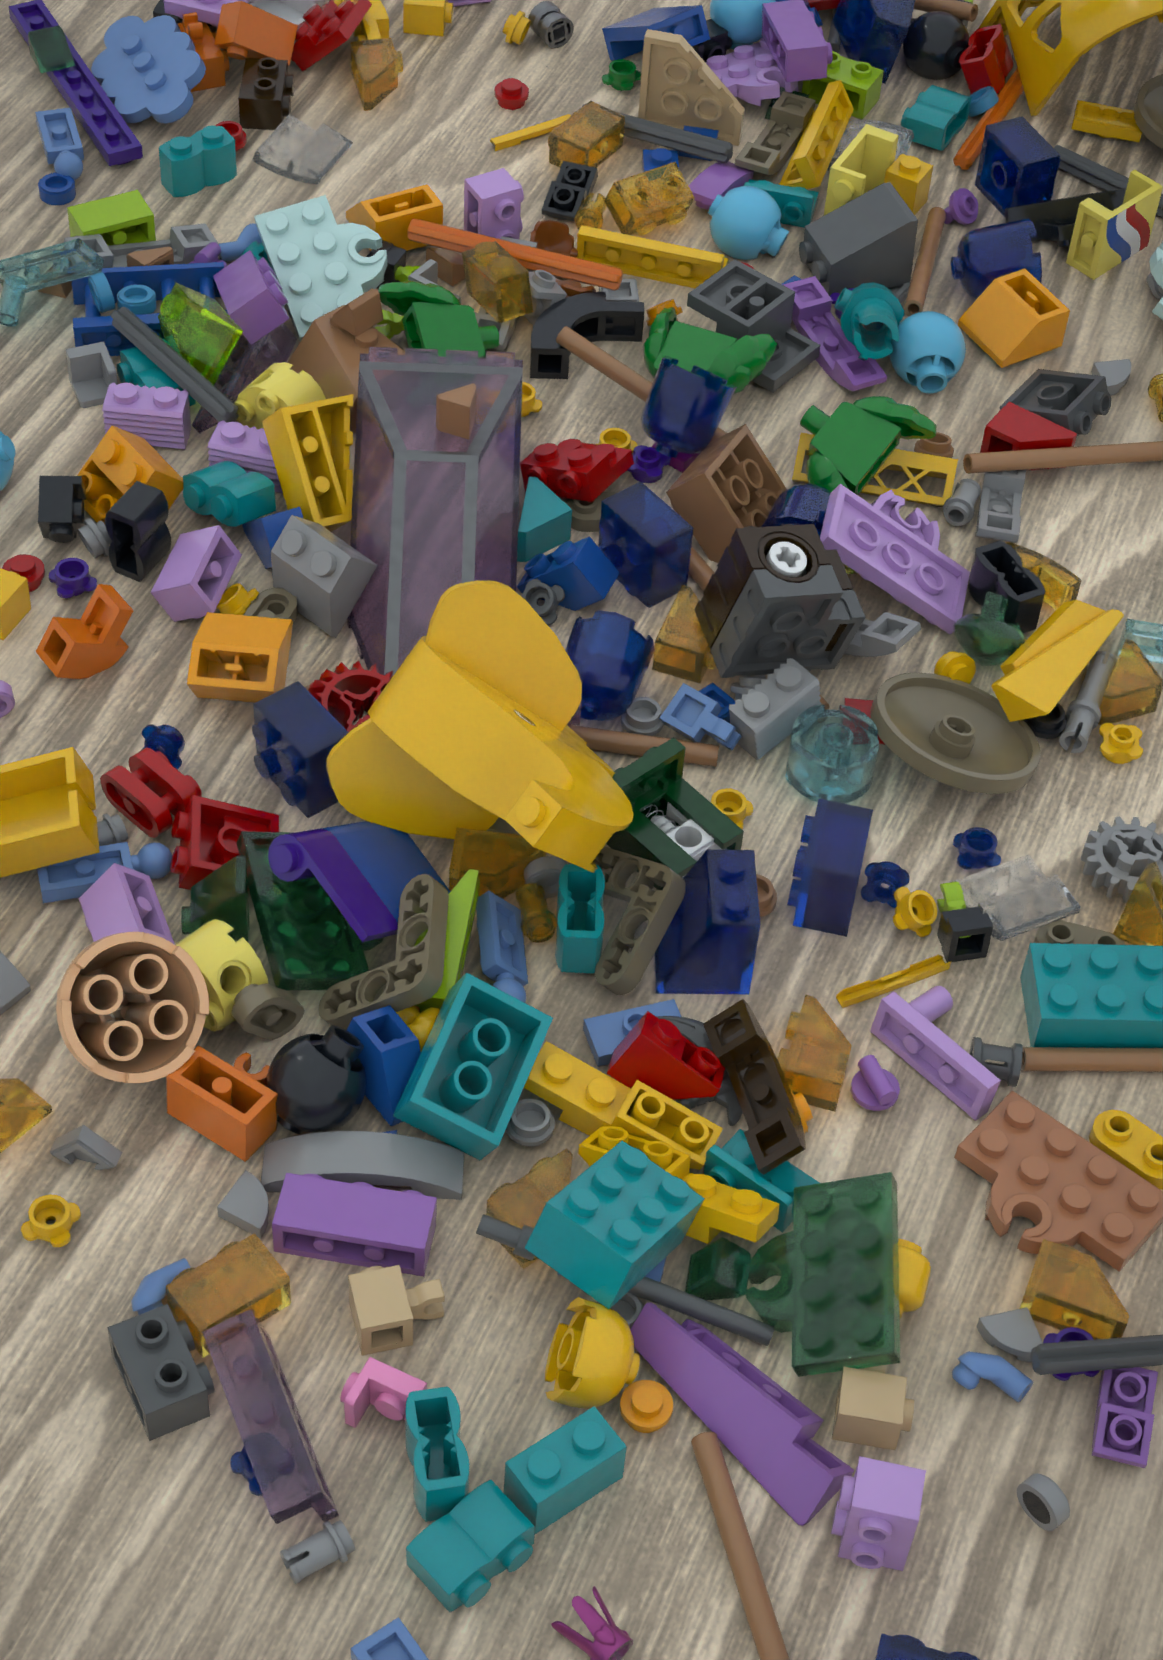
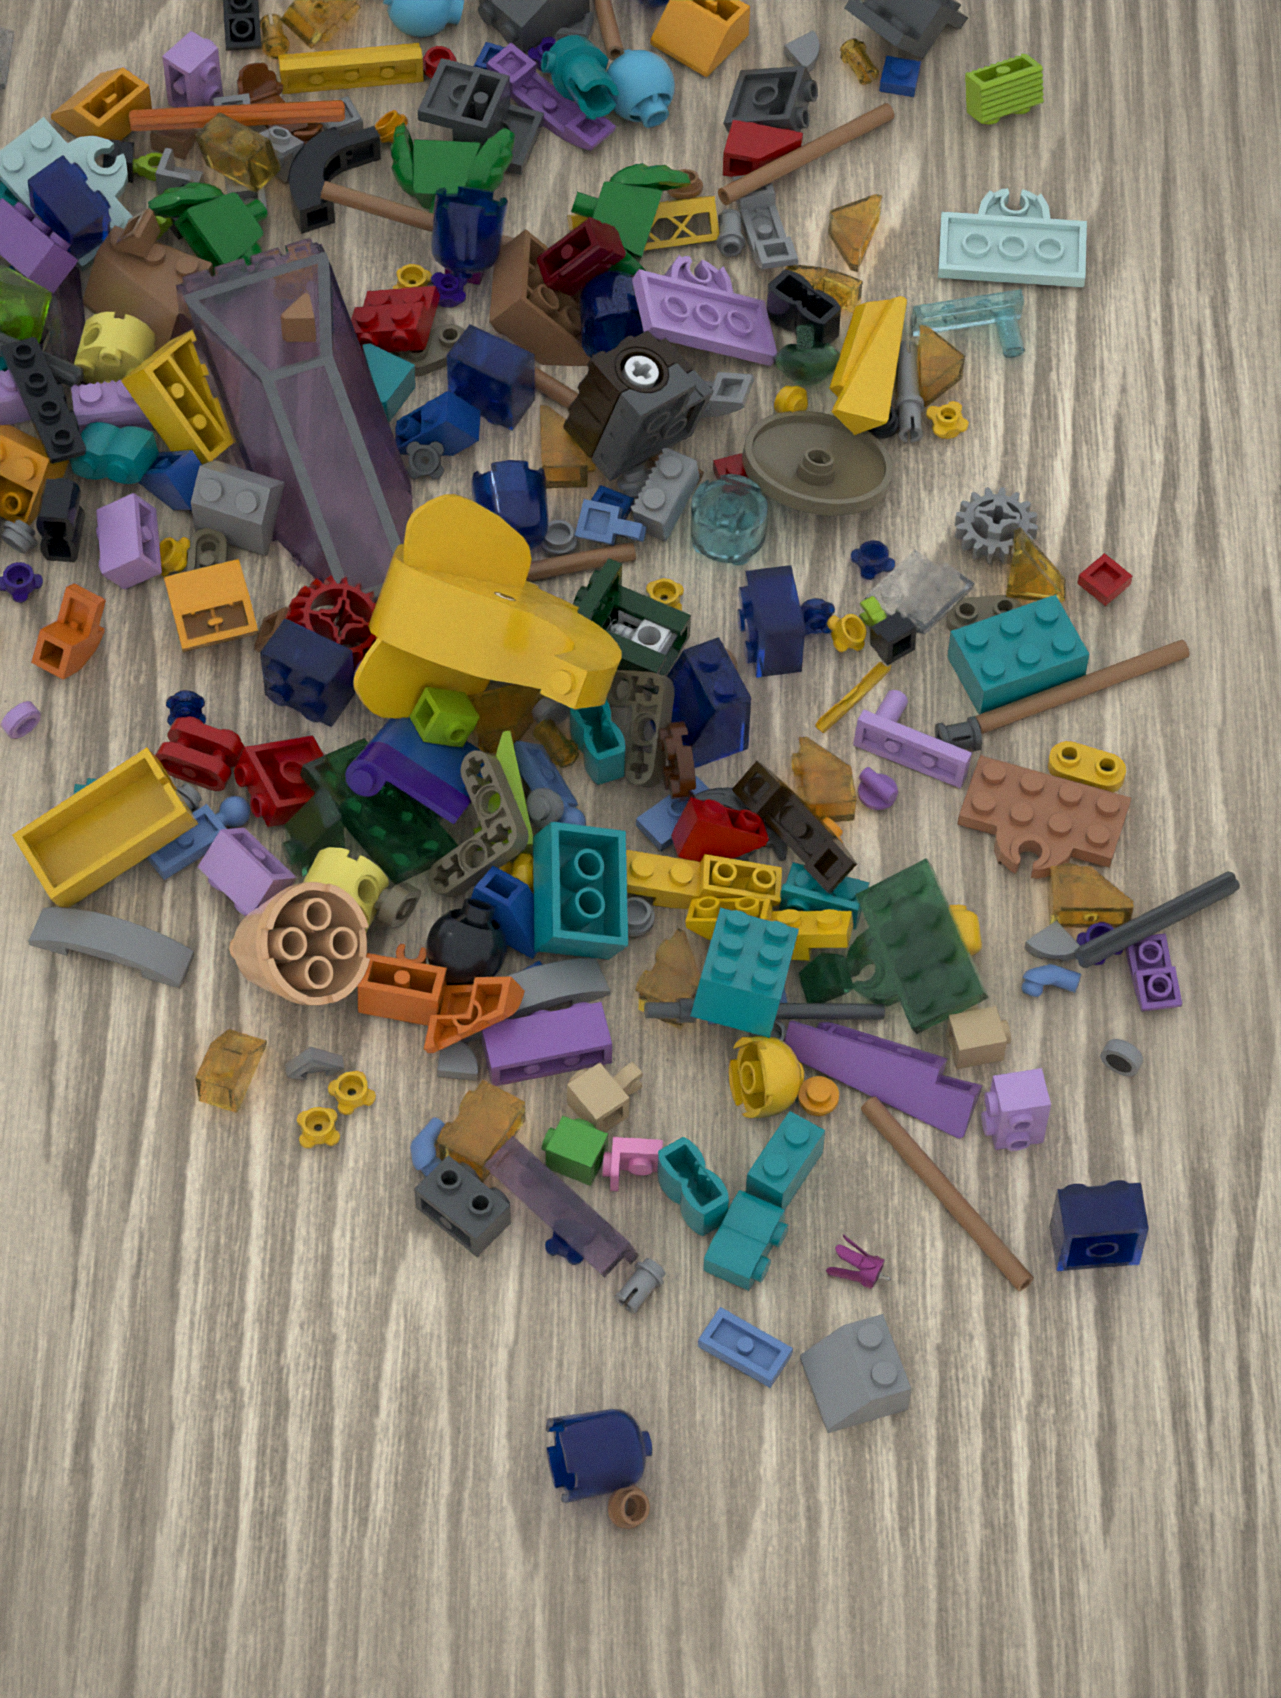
camera: 20 degrees left, 10 degrees up
(106, 1184) = (351, 1081): none -> yellow plate
(182, 421) = (44, 400): none -> black bracket
(284, 1150) = (472, 1009): none -> orange slope
(304, 267) = (70, 206): none -> clear blue brick
(323, 1356) = (575, 1149): none -> bright green brick
(419, 837) = (444, 717): none -> lime brick
(483, 963) = (544, 806): none -> light grey plate
(655, 954) = (680, 772): none -> reddish brown plate
(789, 459) = (580, 256): none -> dark red brick
(1098, 535) = (853, 228): none -> clear yellow slope

